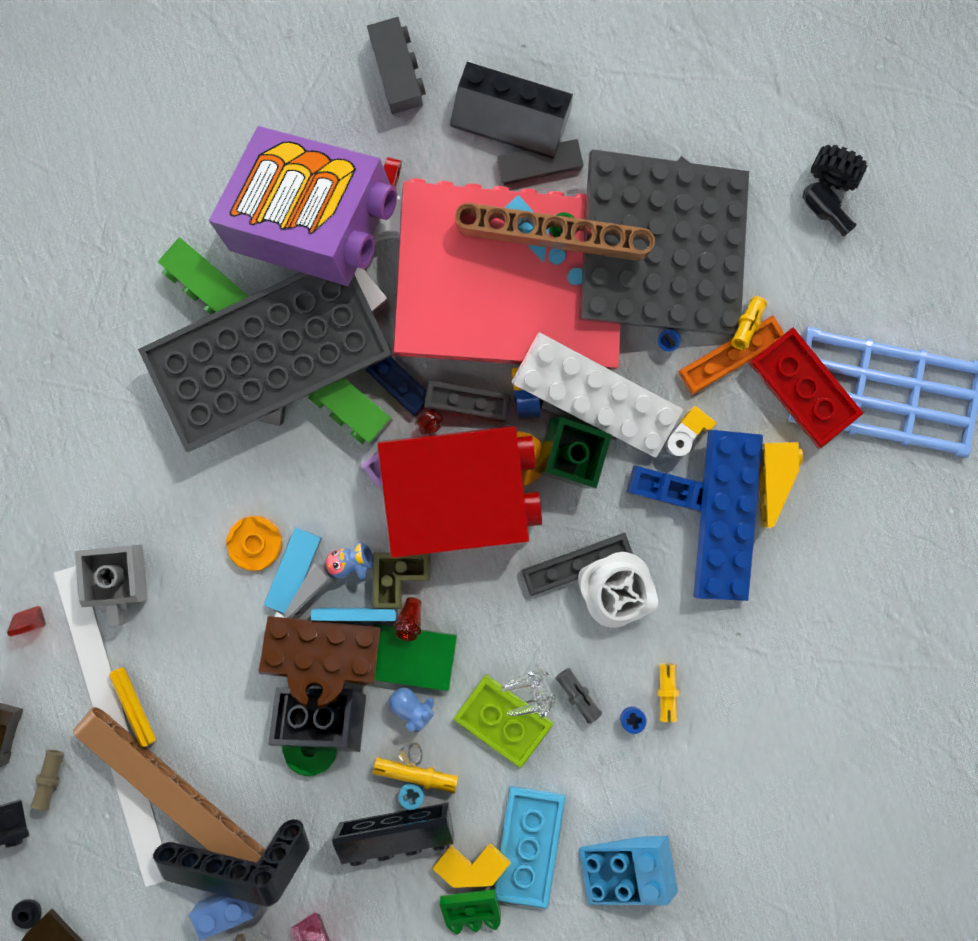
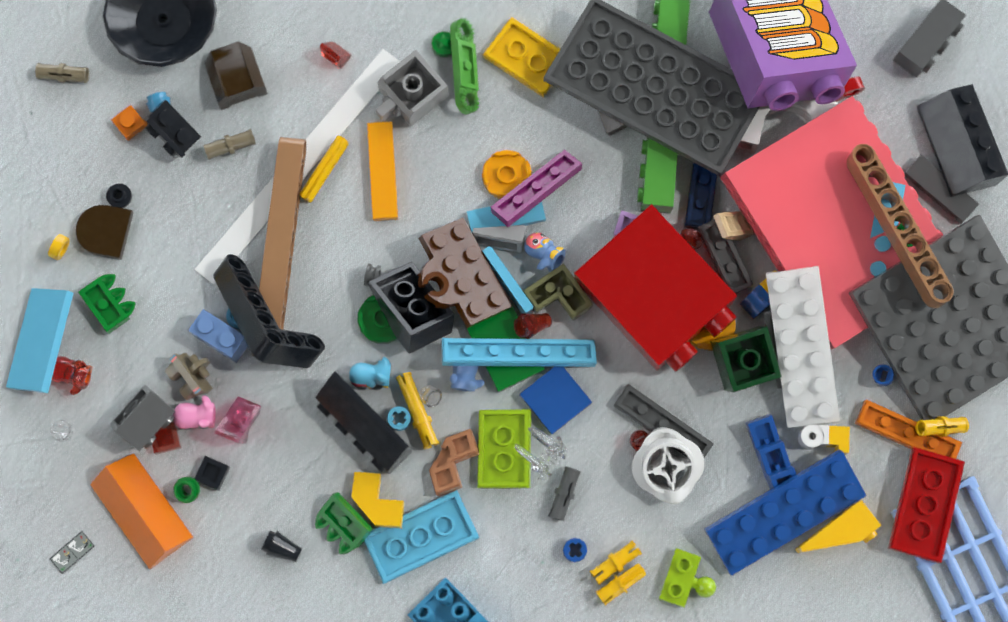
camera: 55 degrees right, 10 degrees down
(88, 514) = (442, 44): none -> green tile
(123, 511) = (464, 66): none -> bright green plate
(148, 449) = (523, 55): none -> yellow tile
(171, 654) = (382, 171): none -> light orange tile
(261, 731) = (371, 273): none -> dark grey bush
(286, 528) = (536, 188): none -> magenta plate
(354, 798) = (369, 375): none -> medium azure animal
(426, 652) = (518, 352): none -> medium azure tile
(445, 377) = (733, 225): none -> tan slope
(485, 787) = (444, 469): none -> nougat tile
(489, 643) = (555, 399): none -> blue tile
(575, 597) = (635, 435): none -> clear red hinge
(689, 702) = (620, 584): none -> yellow axle
(721, 644) = (682, 578): none -> lime plate

